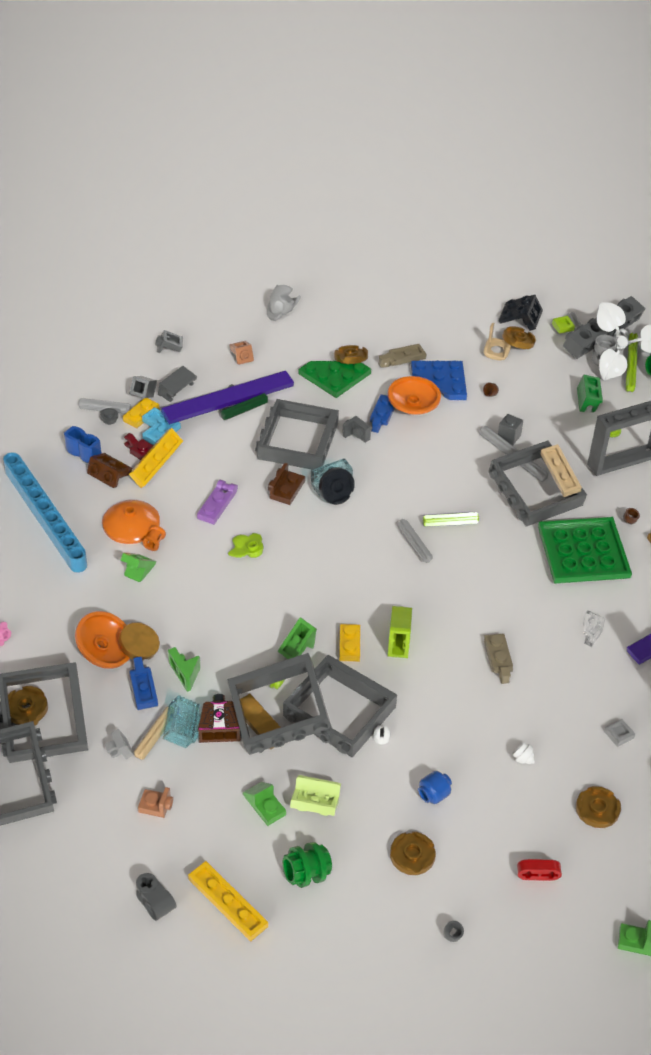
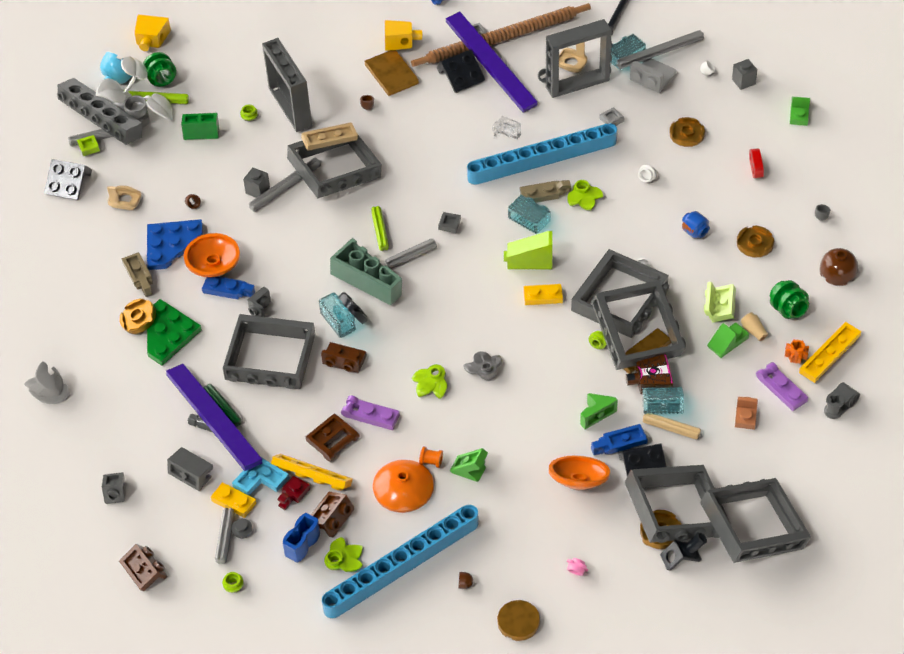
camera: 90 degrees left, 5 degrees up
(12, 552) = (465, 580): none -> reddish brown hinge
(56, 409) = (232, 577): none -> lime plate
(63, 477) = (345, 554): none -> lime plate
(86, 360) = (142, 566): none -> bracket
(106, 697) = (643, 458): none -> black bracket
(119, 745) = (694, 446): light grey tile -> none
(139, 641) = (571, 448): pearl gold tile -> none
(143, 386) = (200, 495): dark grey brick -> none
(188, 845) = (782, 386): none -> medium lavender plate
(196, 469) = (328, 432): none -> reddish brown plate
(232, 863) = (796, 351): none -> orange gear
(243, 352) = (129, 414): nougat bracket -> none
(261, 586) = (484, 365): none -> flat silver plate
(277, 827) = (754, 326): none -> tan cone
(299, 638) = (552, 322): bright green slope -> none
(360, 935) = (839, 267): none -> reddish brown cylinder
(385, 499) = (365, 272): none -> sand green wedge
(453, 571) = (449, 222): none -> dark grey plate
(461, 637) = (529, 214): none -> clear light blue brick
(491, 691) = (584, 195): none -> lime plate
(518, 338) = (110, 176): pearl gold tile -> none
(555, 660) = (541, 154): none -> dark azure beam
(584, 550) = (412, 134): green plate -> none

